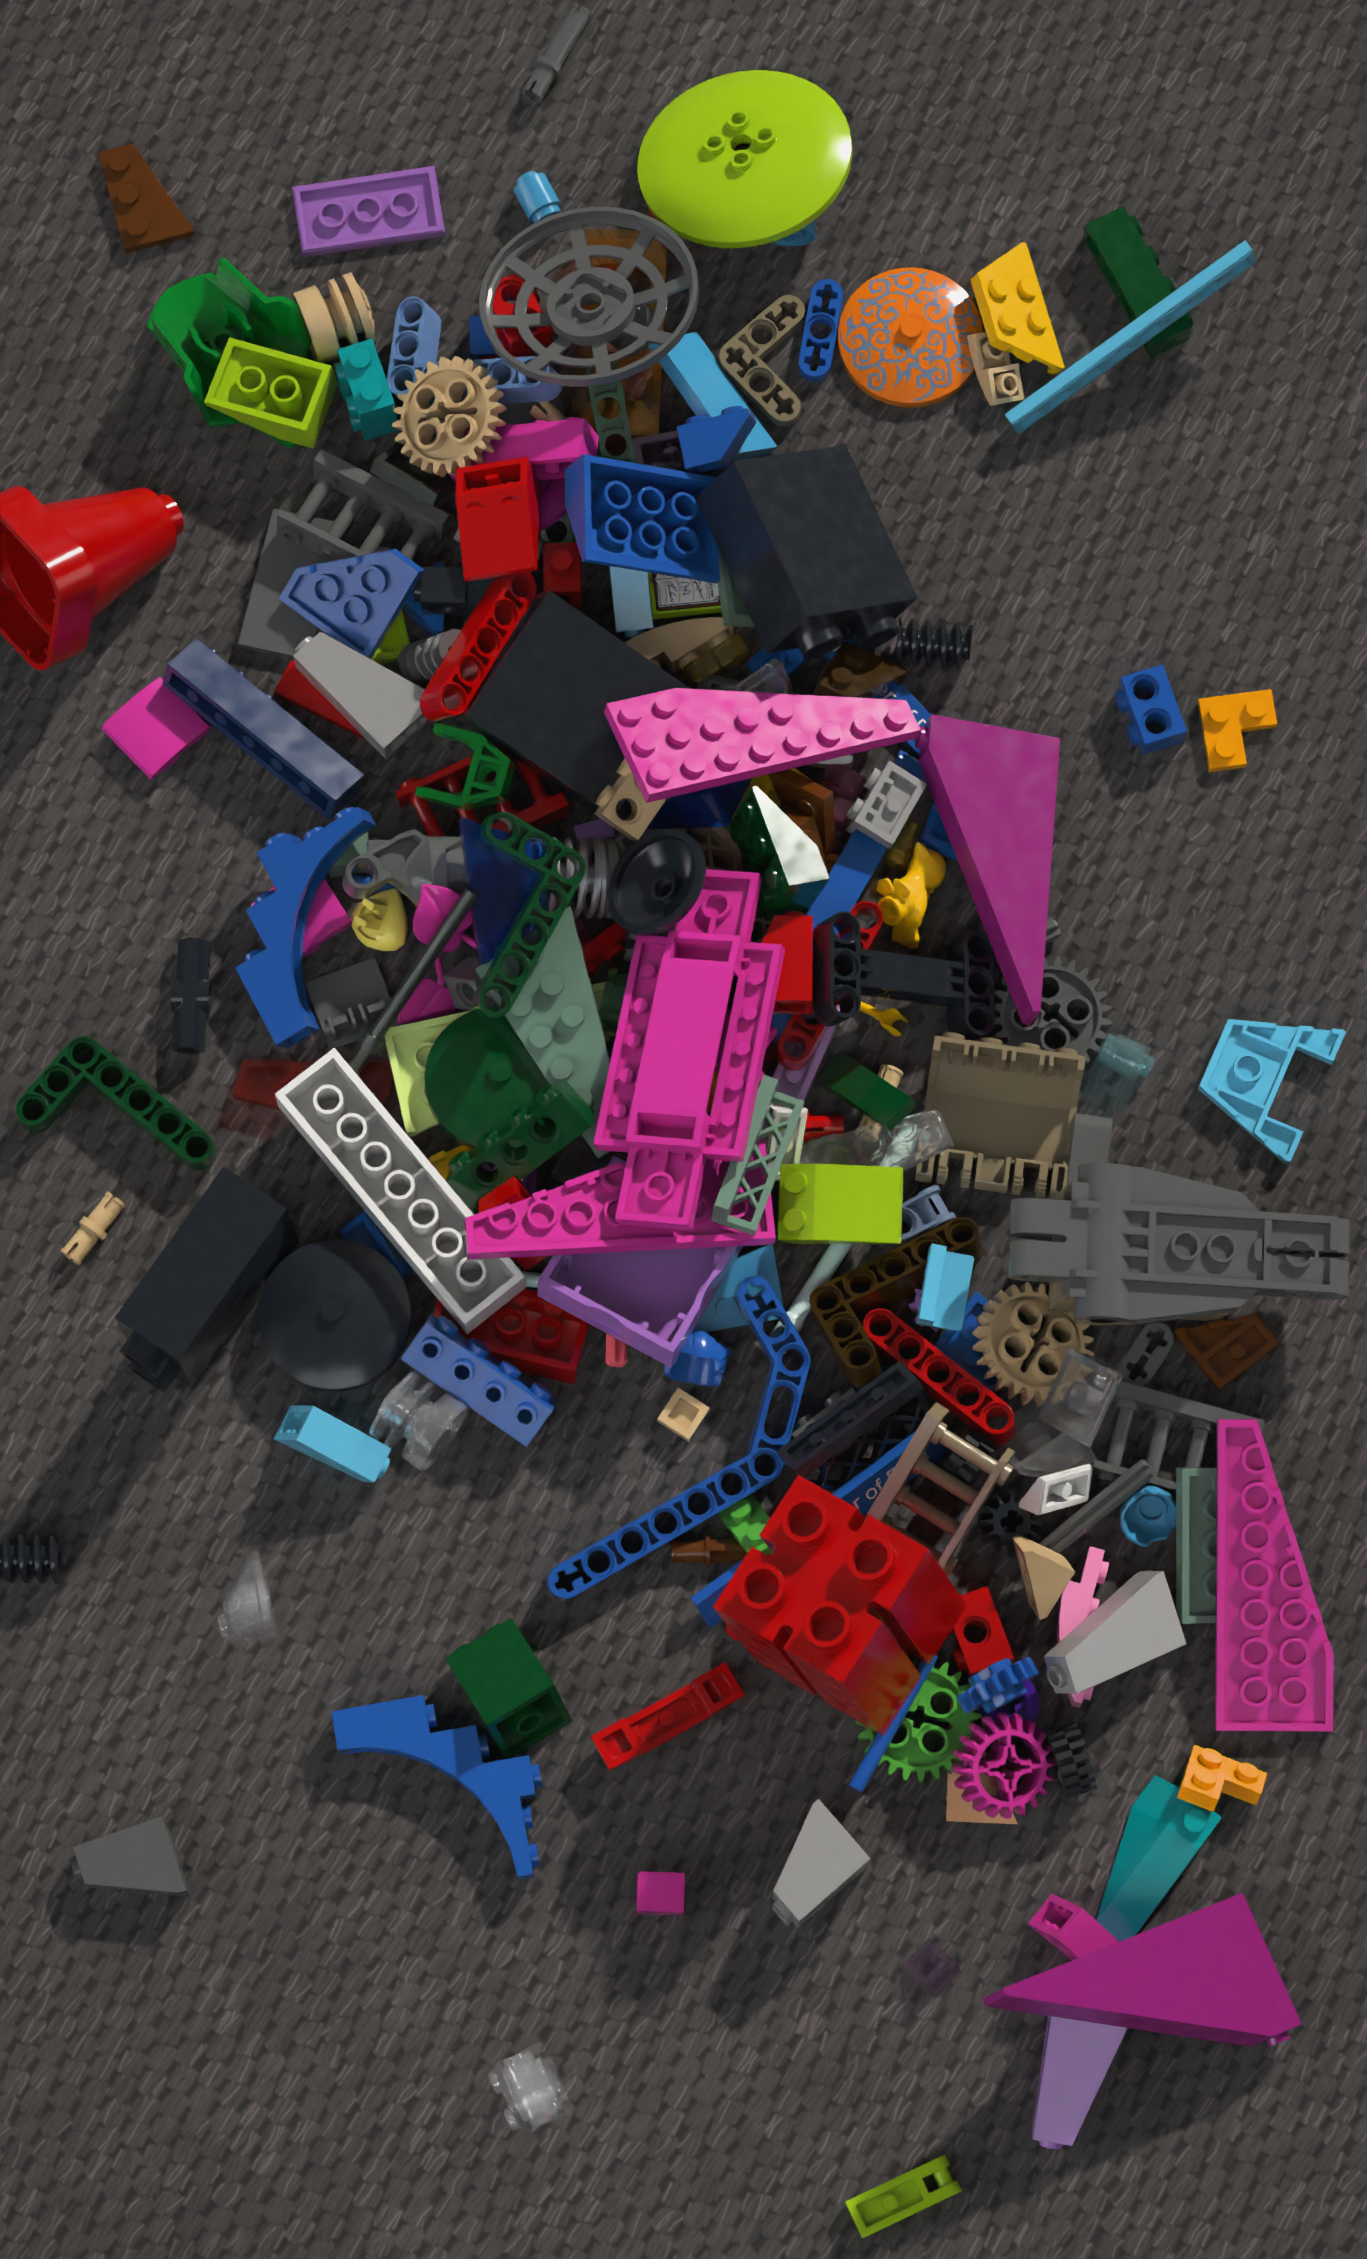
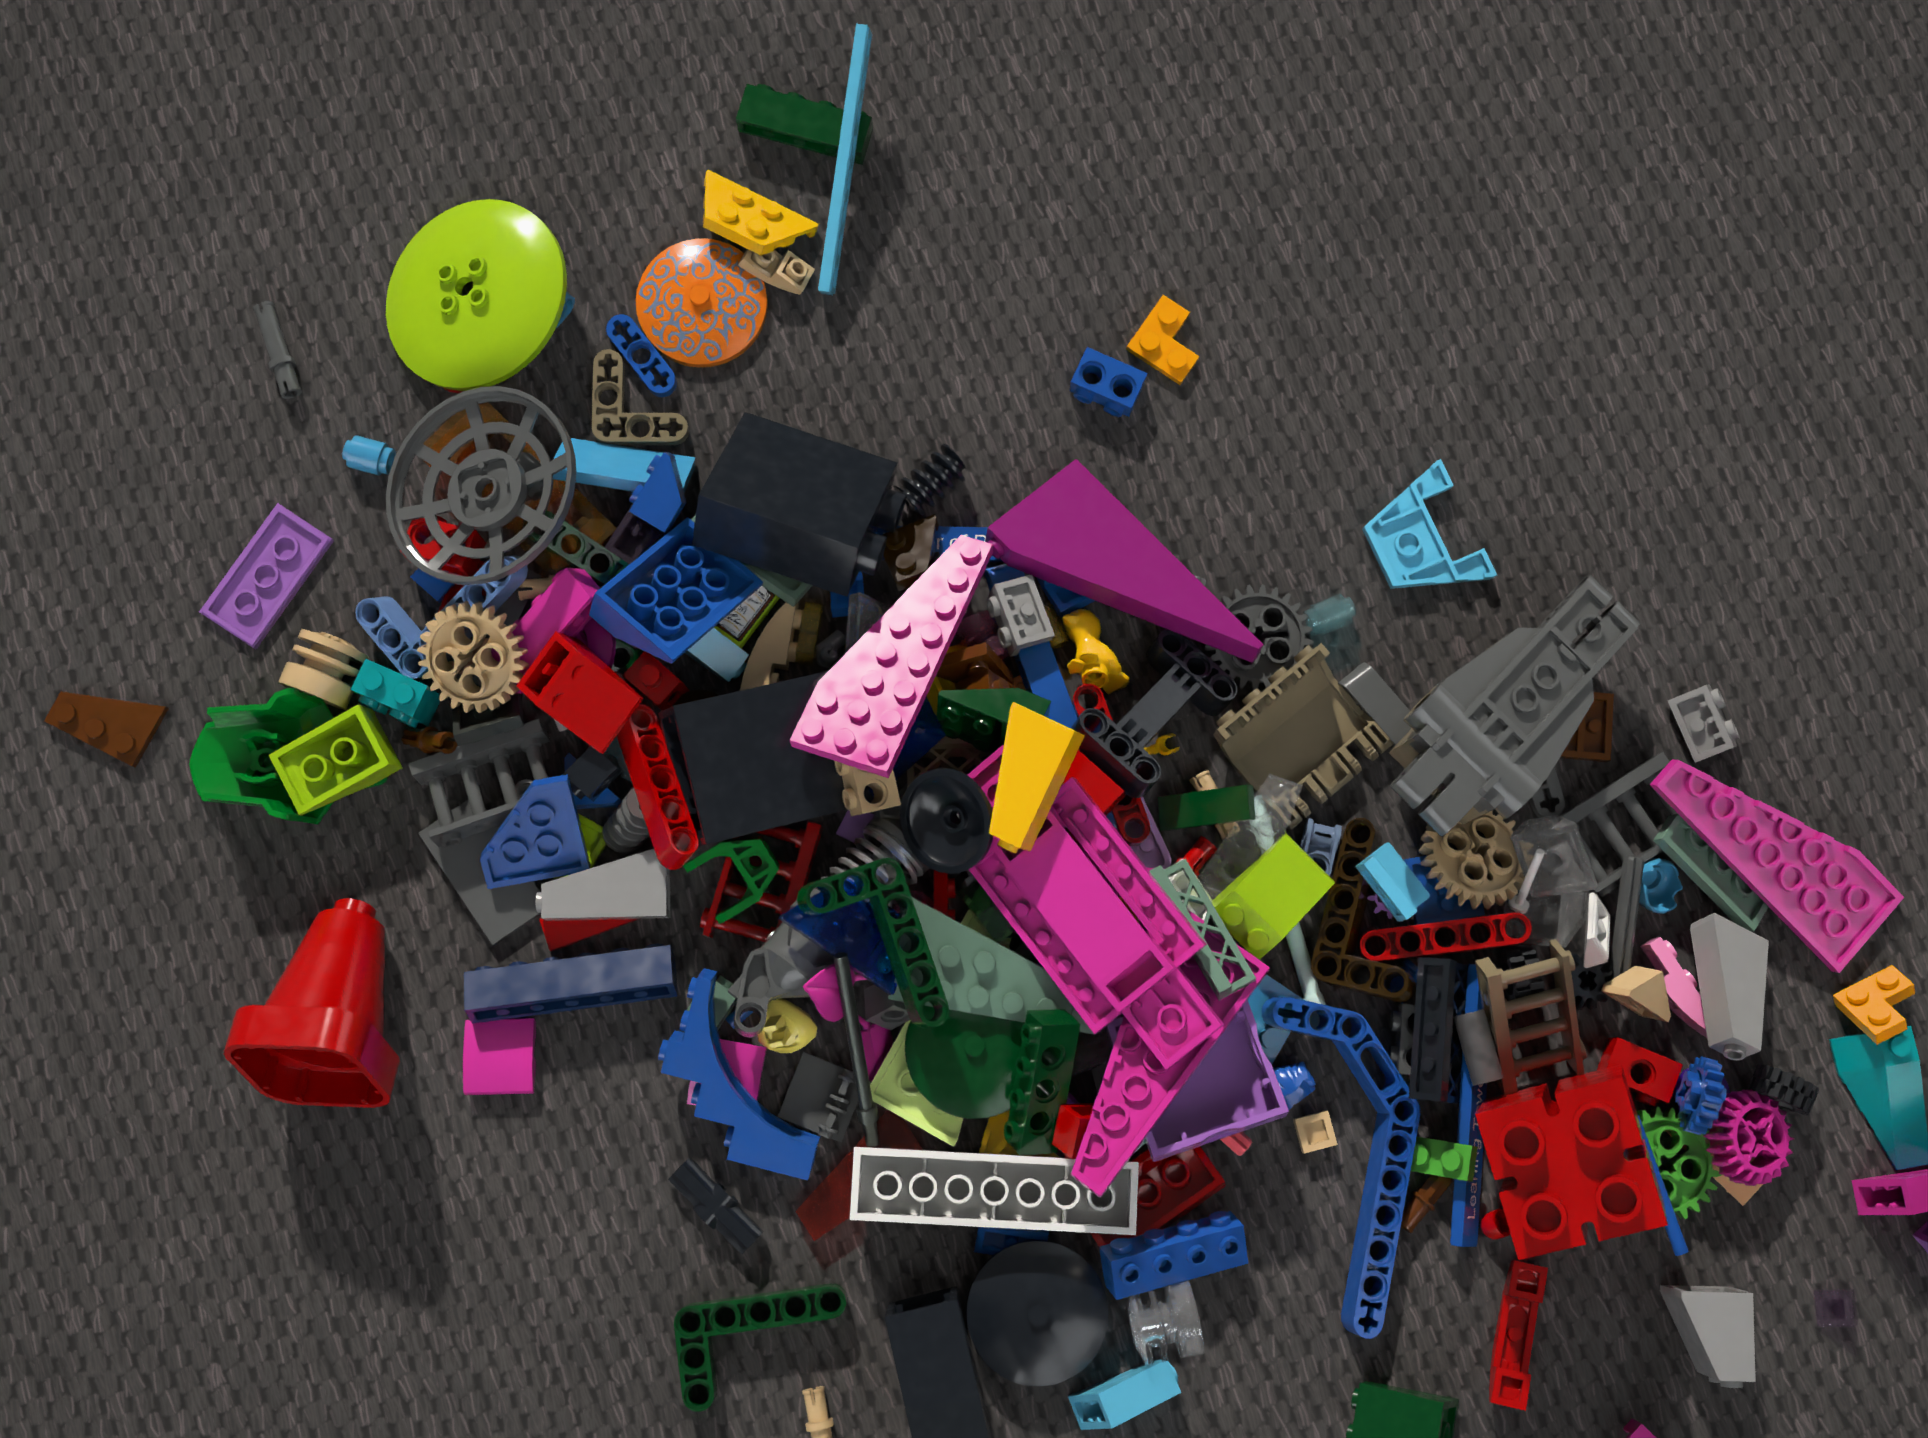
camera: 50 degrees left, 5 degrees up
(354, 448) = (429, 740): none -> reddish brown axle
(749, 907) = (1030, 775): none -> yellow slope
(871, 1472) = (1478, 1047): none -> flat silver piece
(1026, 1413) = (1519, 902): none -> white piece
(1327, 1440) = (1703, 722): none -> light grey bracket

